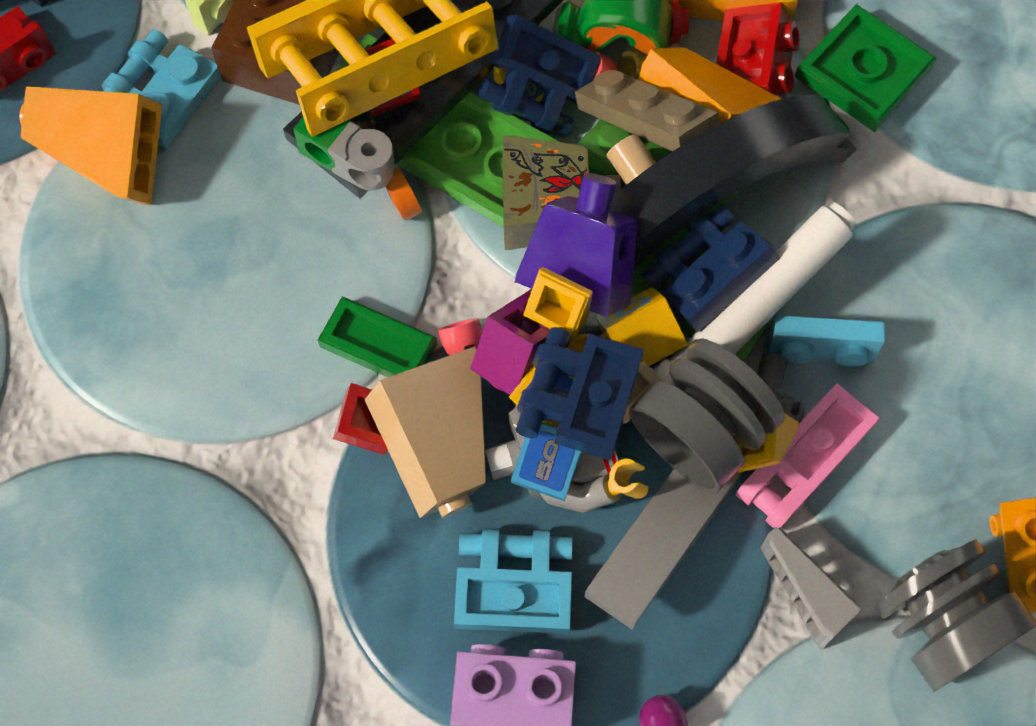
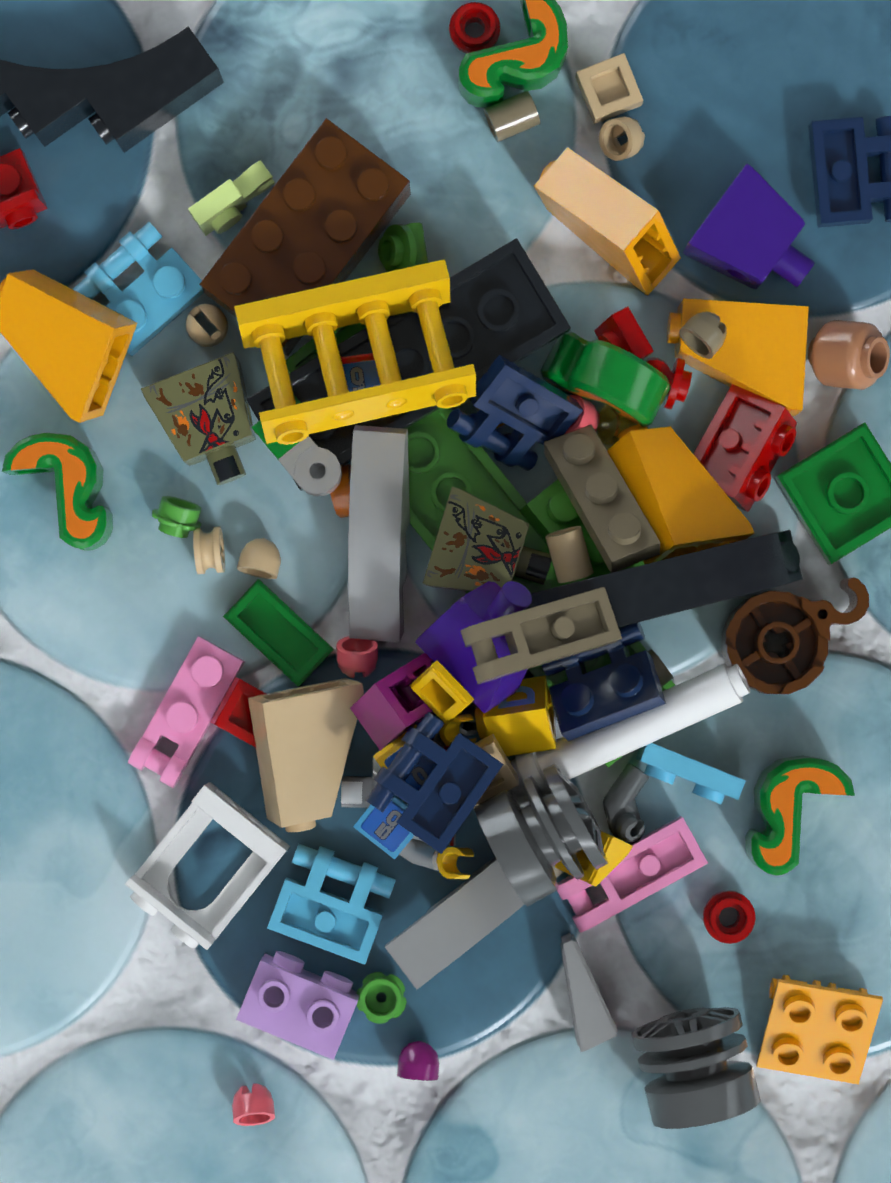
camera: 15 degrees right, 20 degrees up
(133, 245) = (76, 483): none -> green animal
(224, 106) = (214, 316): none -> tan hinge
(246, 263) = (177, 516): none -> bright green plate
(247, 166) = (206, 415): none -> olive torso
(286, 282) = (209, 550): none -> tan bush
(305, 441) = (186, 710): none -> bright pink plate
(337, 279) = (260, 559): none -> tan hinge
(357, 520) = (152, 878): none -> white panel
(446, 210) = (378, 532): none -> light grey slope
(609, 652) = (381, 1011): none -> bright green plate
(636, 201) = (542, 634): none -> dark tan plate
(874, 179) = (806, 630): none -> reddish brown piece
(926, 349) = (780, 807): none -> green animal
(928, 457) = (745, 917): none -> red plate

